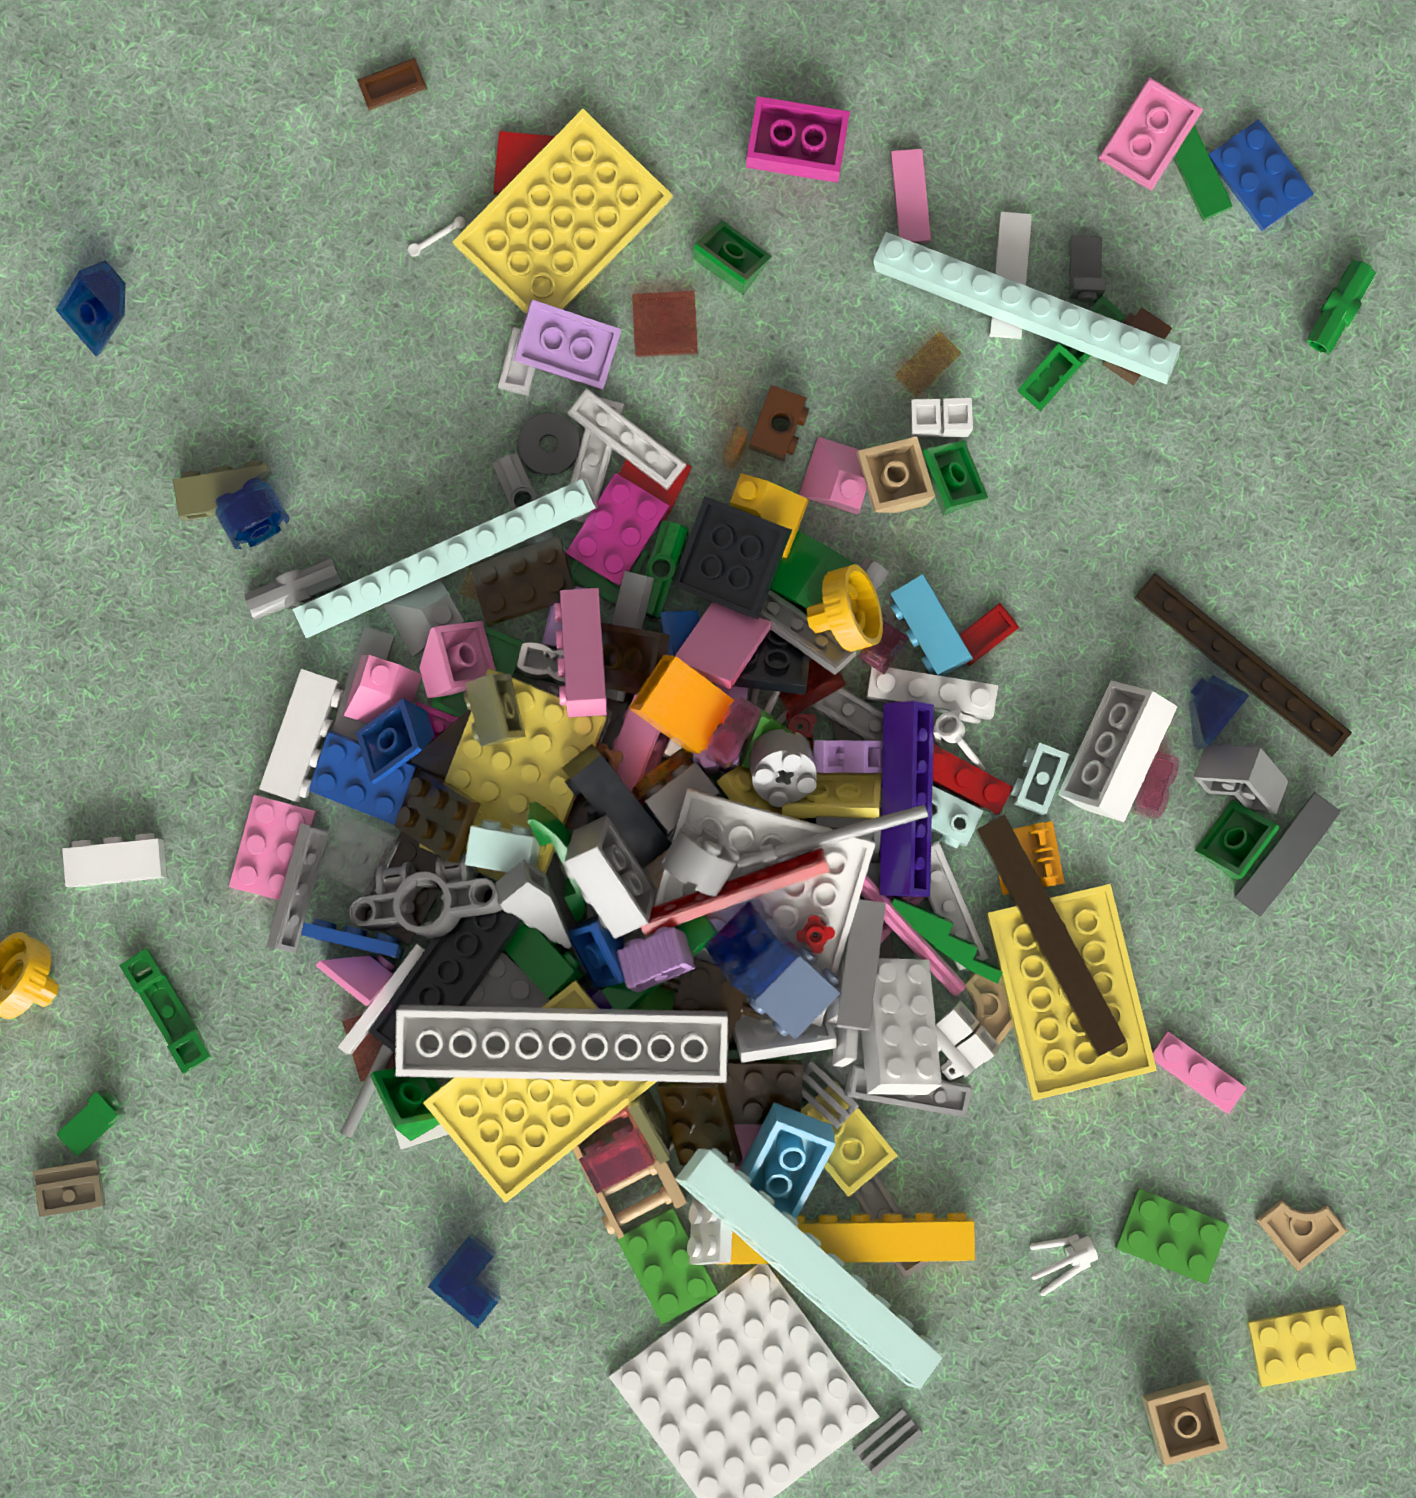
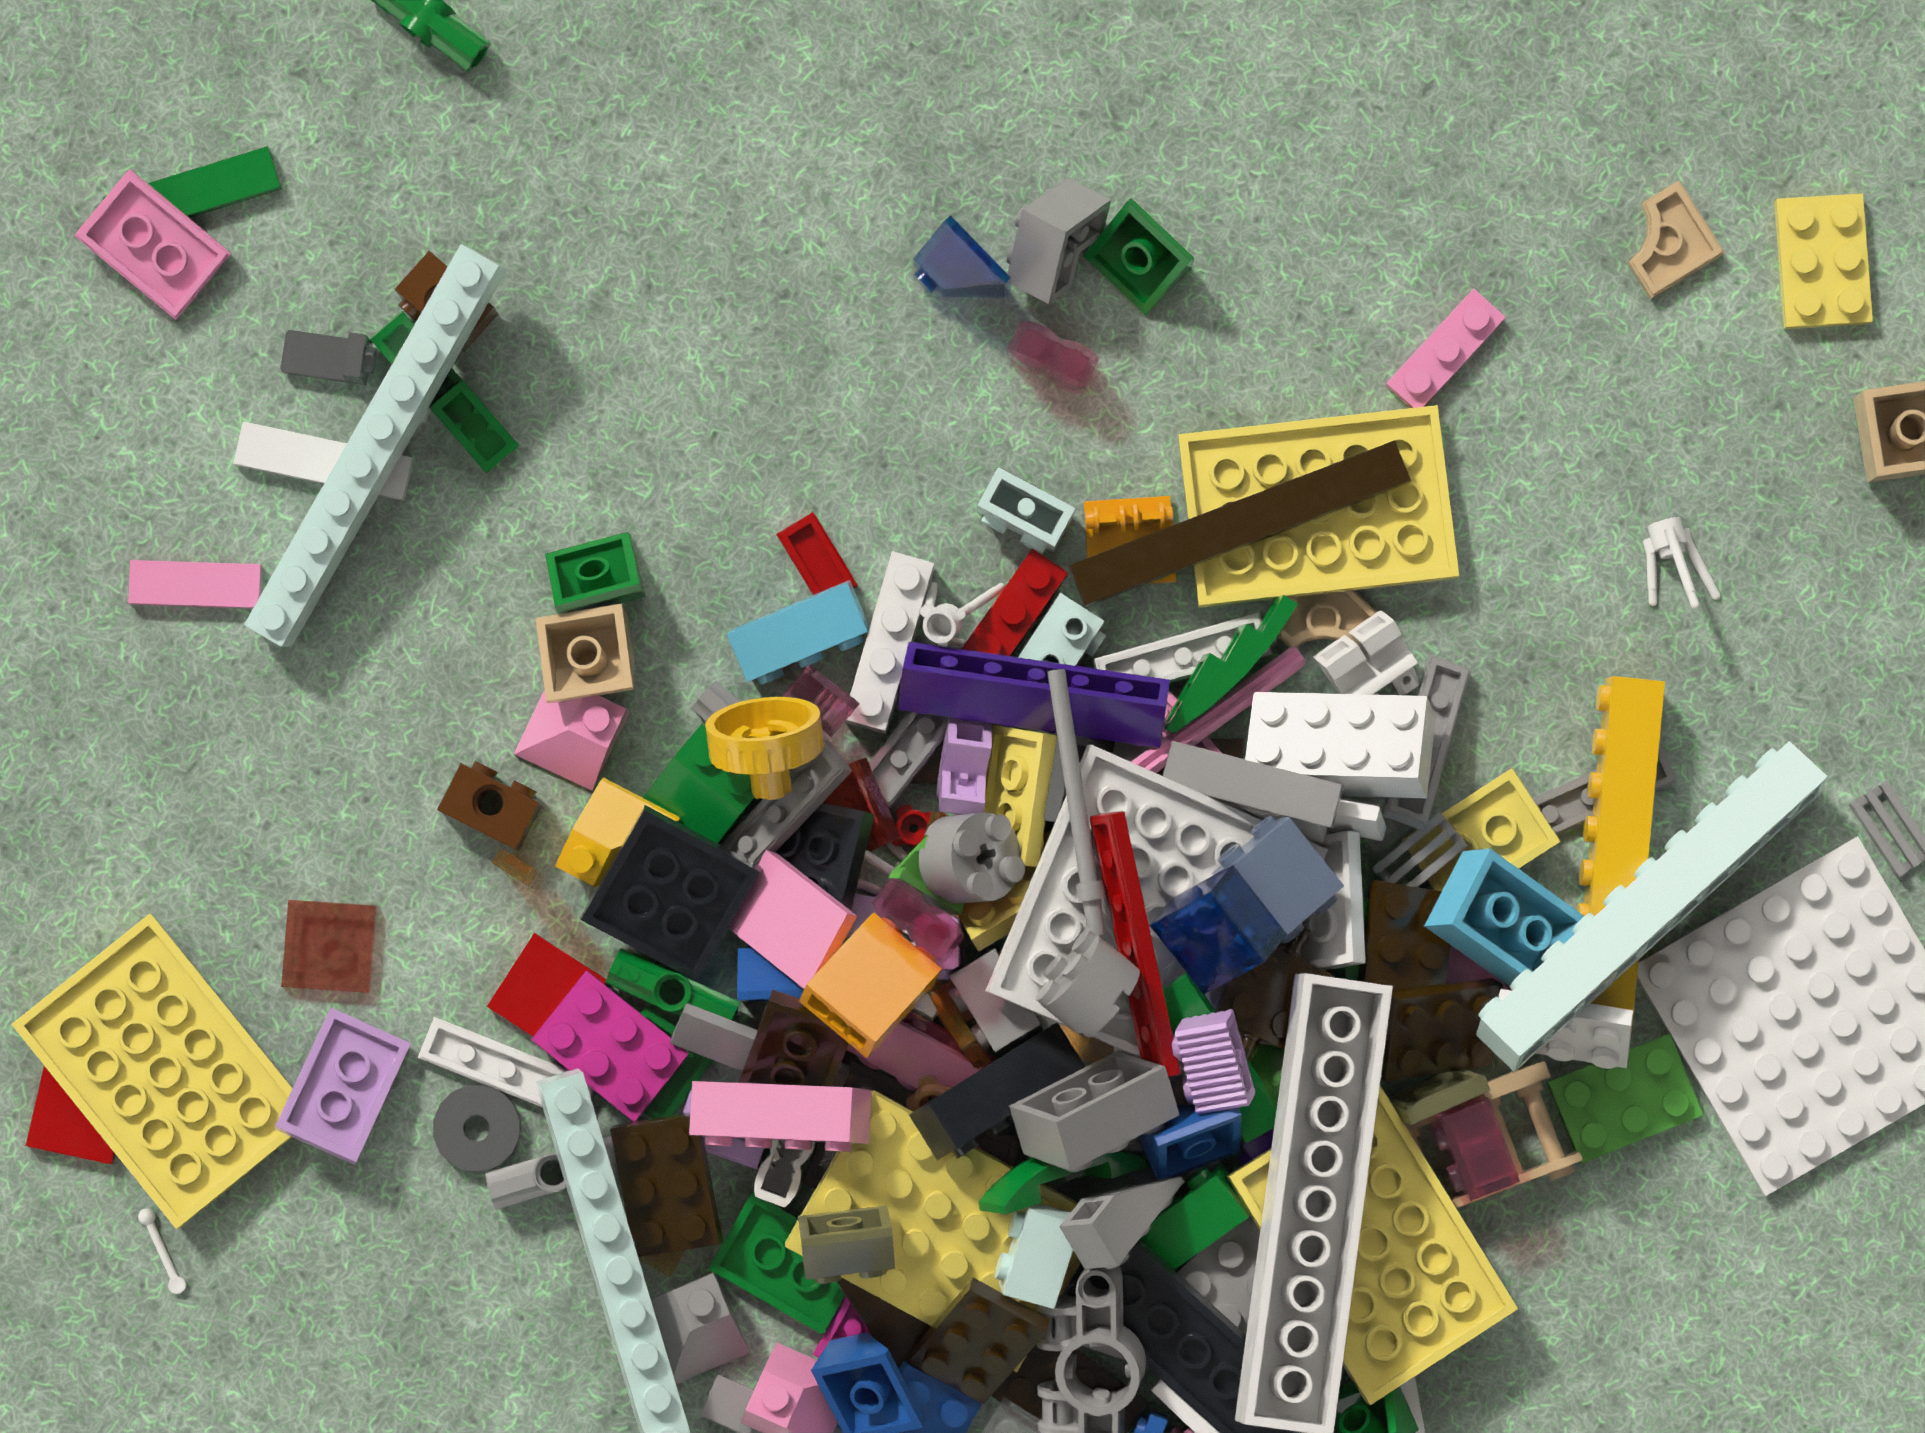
camera: 80 degrees left, 0 degrees up
(454, 657) = (764, 1290): bright pink slope -> none
(459, 1283) = (1618, 1385): clear blue brick -> none
(514, 375) = (375, 1164): white tile -> none
(626, 439) = (484, 1018): white tile -> none
(730, 256) = (246, 842): green slope -> none
(797, 139) = (96, 730): dark pink brick -> none
(814, 924) = (1192, 838): red plate -> none
(927, 364) = (433, 590): clear orange tile -> none
(949, 420) = (515, 587): white hips -> none
(1117, 750) = (1000, 401): white brick -> none
(1172, 1236) = (1659, 414): bright green plate -> none
(1243, 665) = (901, 217): dark brown tile -> none
(1260, 175) = (229, 102): blue plate -> none
(1287, 854) = (1166, 191): dark grey slope -> none

